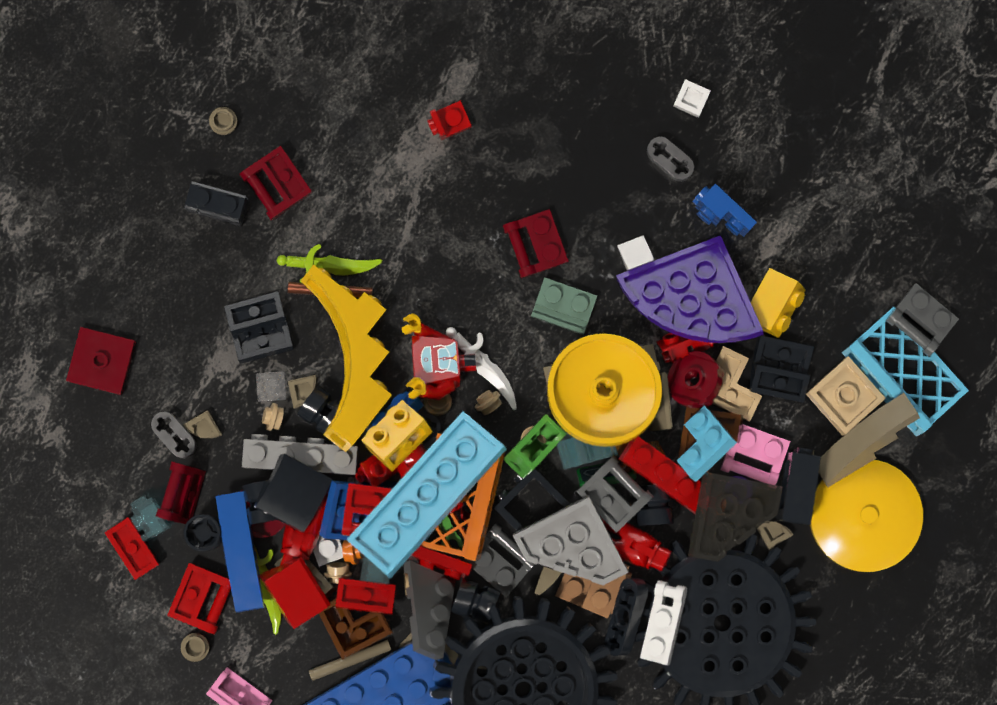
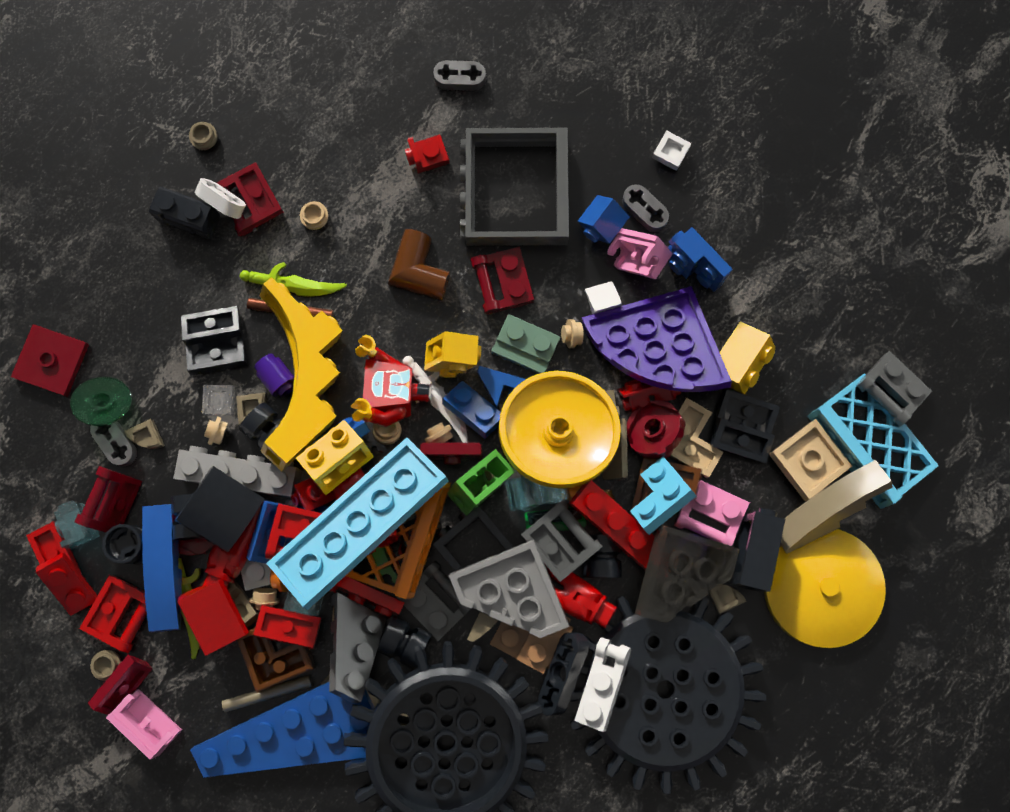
camera: 10 degrees right, 5 degrees down
(150, 574) = (66, 583): none -> red plate
(154, 388) = (97, 392): none -> clear green dish
(212, 664) = (121, 682): none -> dark red plate
(252, 187) = (220, 198): none -> white beam
(324, 358) = (274, 375): none -> dark purple brick
(343, 193) = (314, 215): none -> tan plate
(443, 241) = (409, 268): none -> reddish brown brick
(474, 29) = (459, 75): none -> flat silver beam
(494, 169) = (515, 138): none -> dark grey window
(494, 325) = (452, 354): none -> yellow brick
(504, 420) = (452, 452): none -> dark red plate
(519, 375) = (472, 409): none -> blue plate
(538, 346) = (496, 382): none -> blue slope
(608, 292) = (572, 333): none -> tan plate
(629, 176) = (603, 219): none -> blue brick
(667, 209) = (639, 253): none -> bright pink hinge

